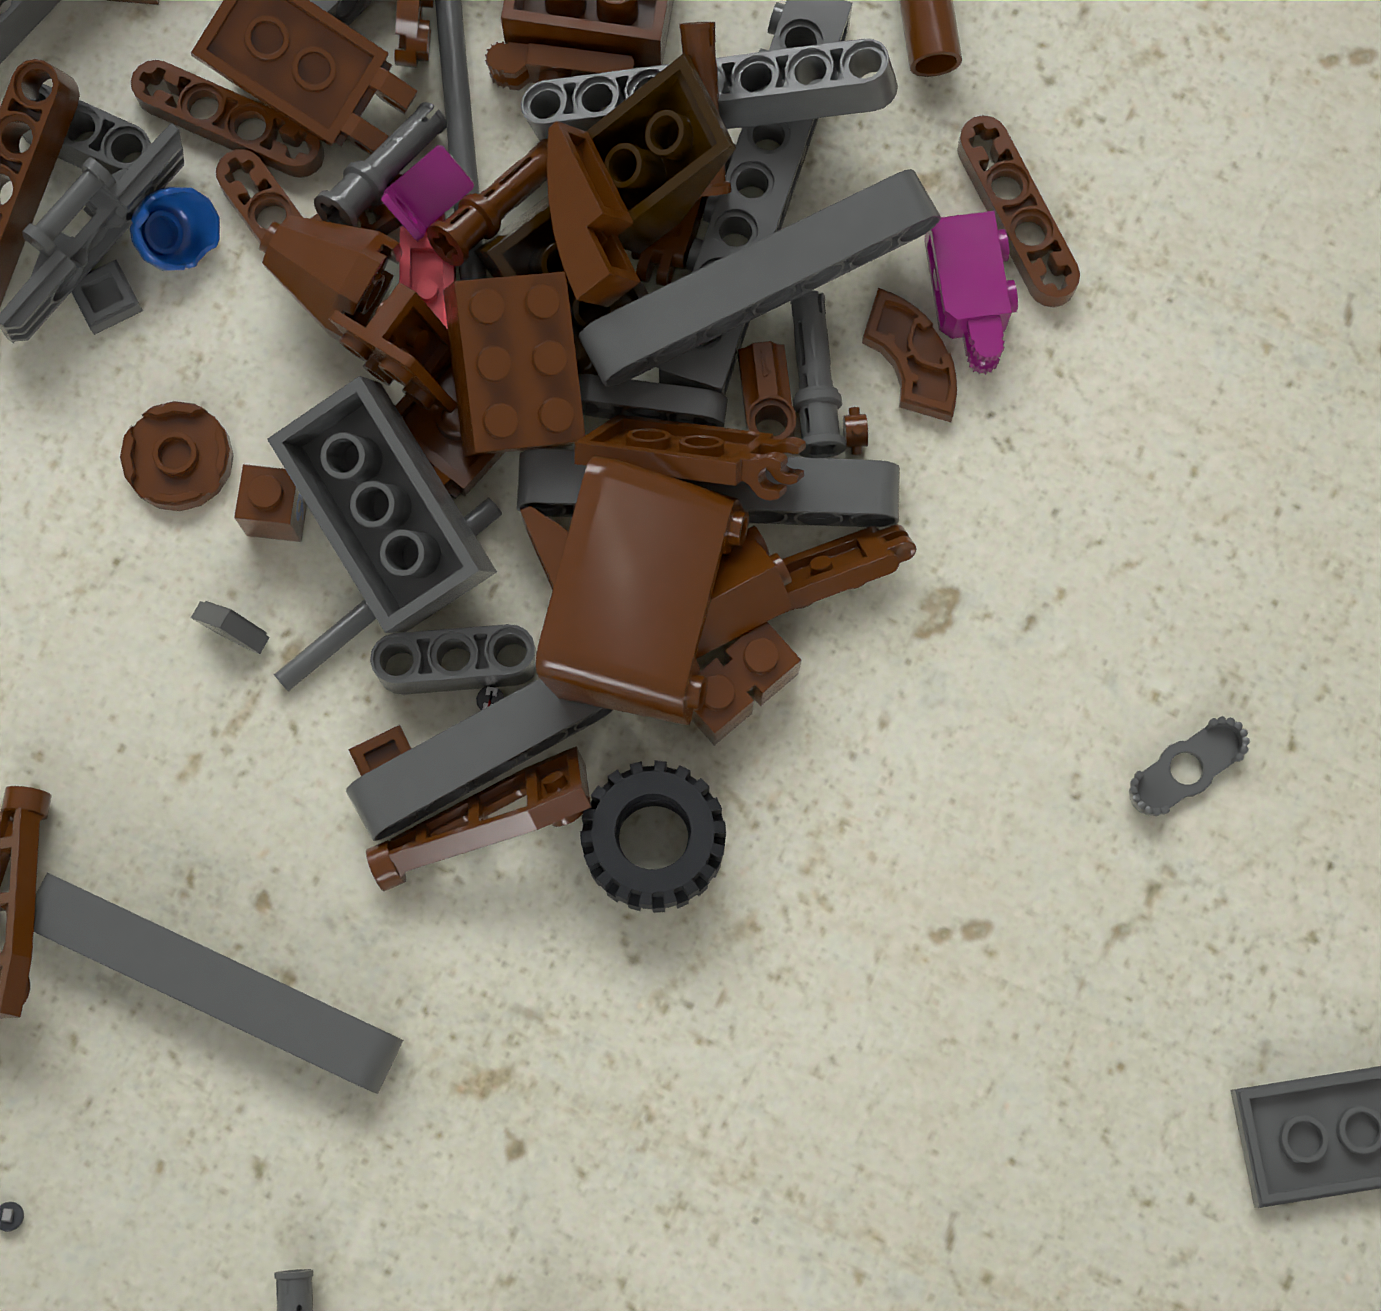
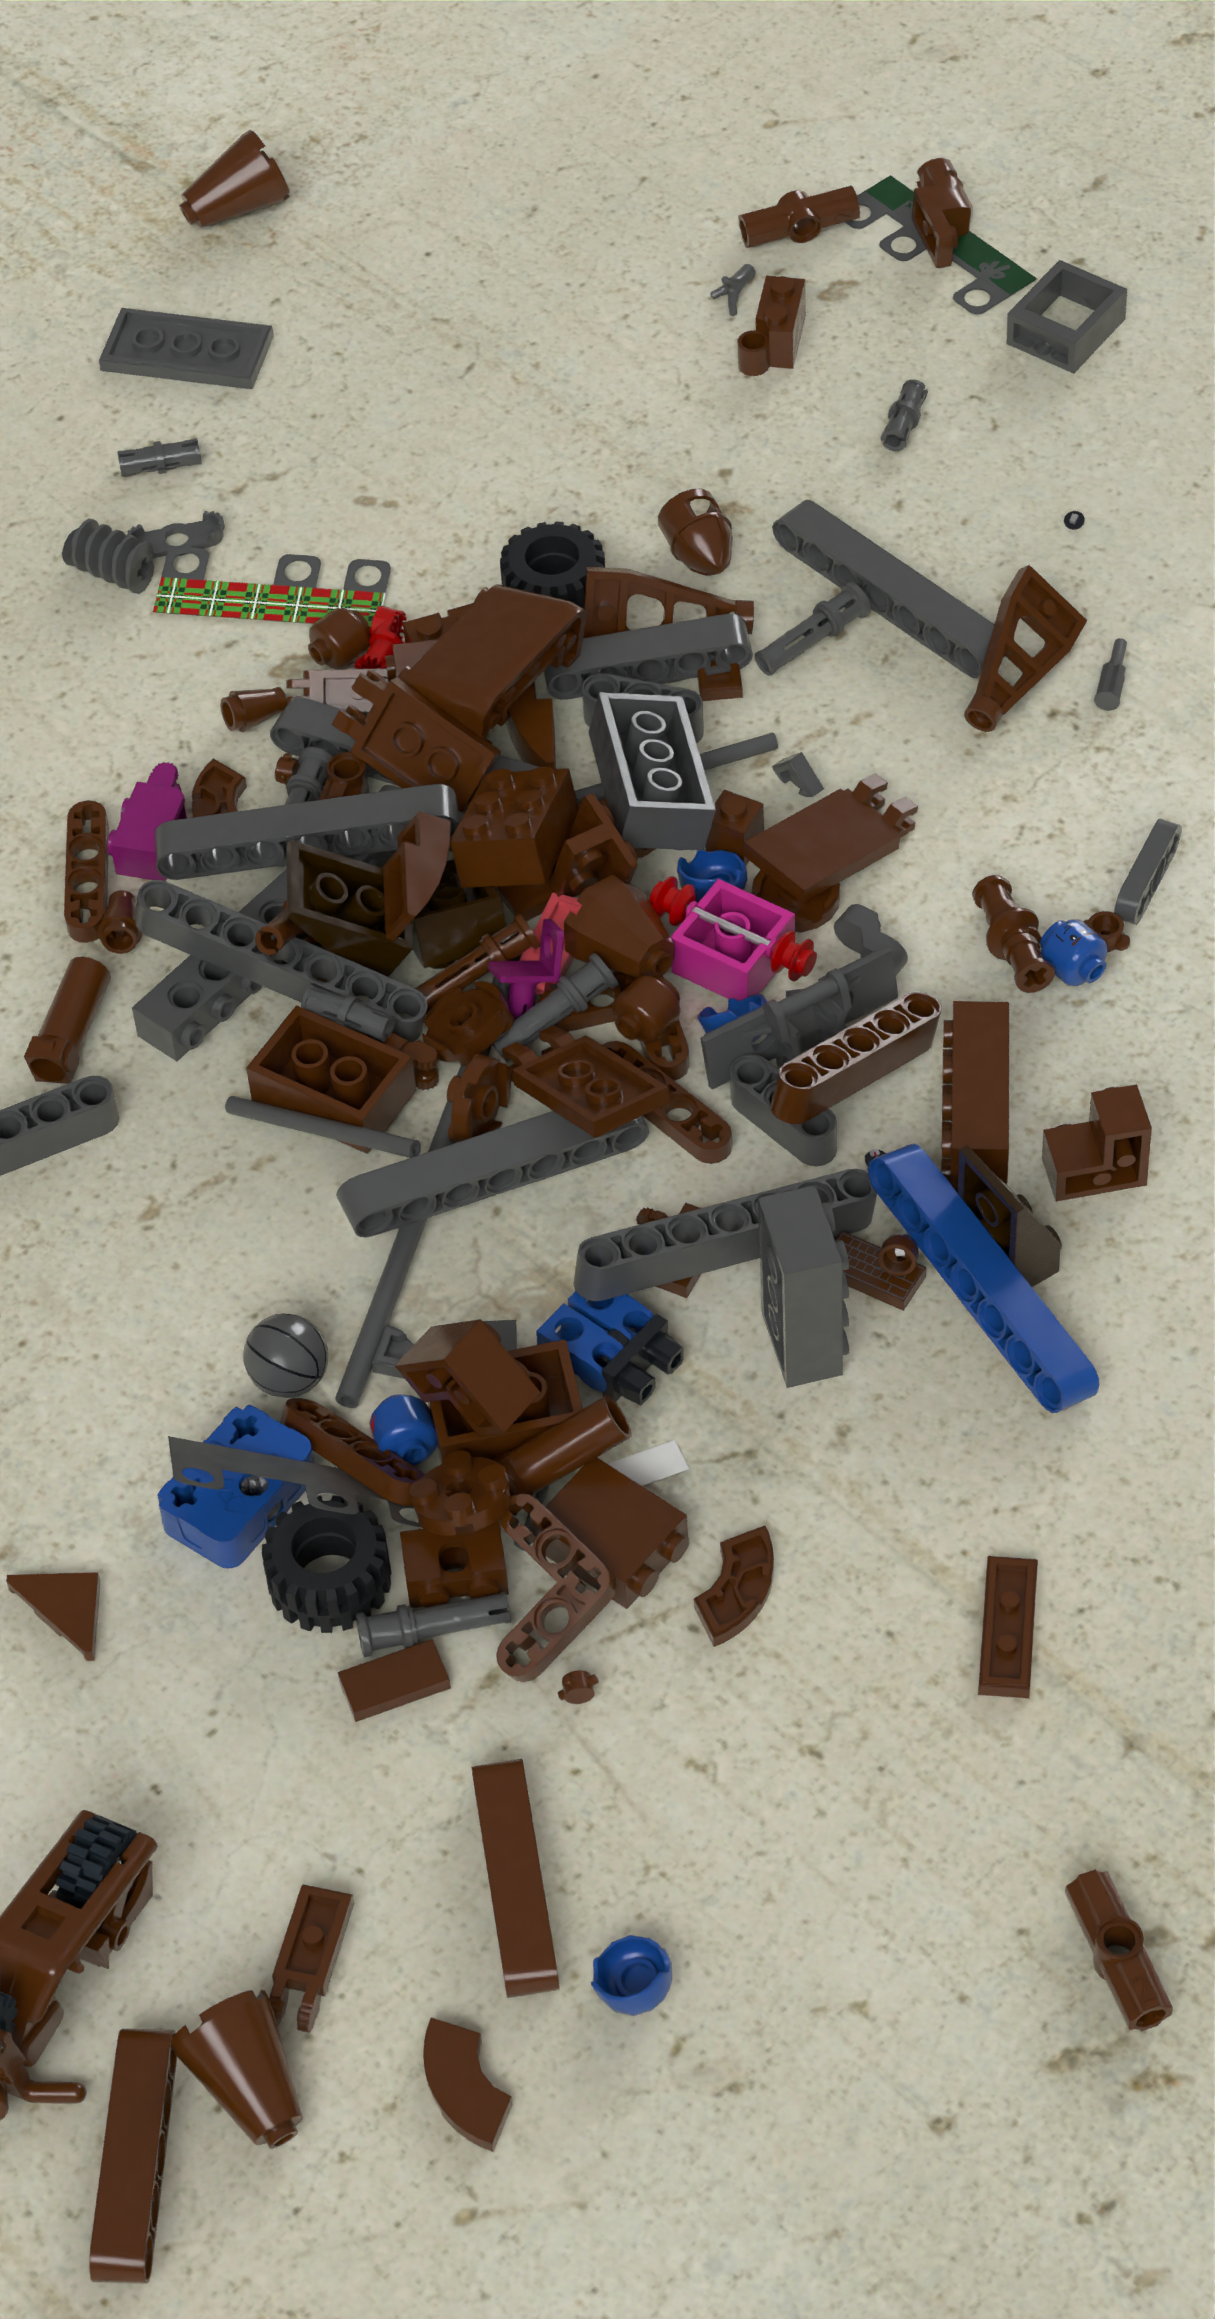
camera: 155 degrees left, 25 degrees down
(47, 385) = (860, 931): none -> dark grey piece
(150, 527) = (831, 839): none -> reddish brown tile
(206, 320) = (731, 938): none -> dark pink brick
(263, 412) = (708, 868): none -> blue hair
(272, 189) = (646, 1008): none -> reddish brown head
(276, 899) = (825, 621): none -> dark grey pin
(489, 976) = (697, 541): none -> reddish brown helmet
(494, 98) = (486, 1016): none -> reddish brown plate
(597, 53) = (349, 1012): none -> dark grey pin
(824, 653) = (383, 634): none -> red connector
(887, 651) = (339, 638): none -> reddish brown head
(937, 143) = (118, 925): none -> reddish brown cone
(943, 506) = (250, 707): none -> reddish brown cone
(1000, 707) = (282, 601): none -> piece
(1246, 681) = (110, 555): none -> dark grey piece
(1282, 897) = (159, 457): none -> dark grey pin

